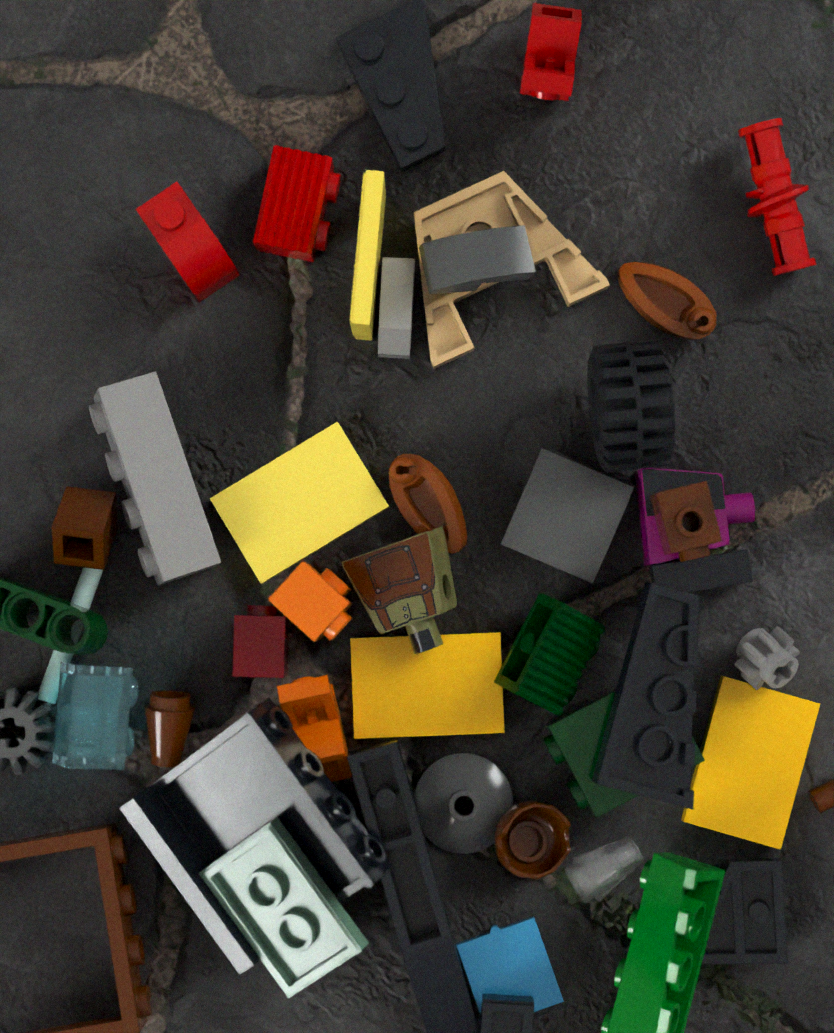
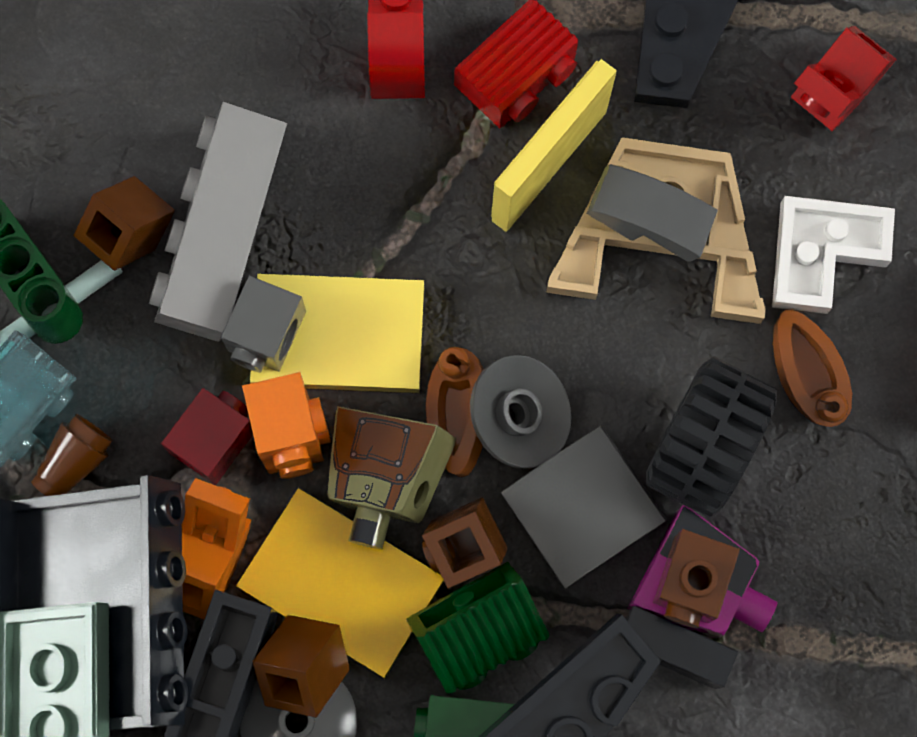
camera: 30 degrees right, 10 degrees down
(244, 538) = (263, 325): none -> dark grey brick
(396, 307) = (548, 213): light grey piece -> none
(443, 766) = (301, 665): none -> reddish brown brick
(489, 464) = (538, 405): none -> dark grey dish
(500, 600) = (463, 543): none -> reddish brown brick
(607, 198) = (816, 236): none -> white plate

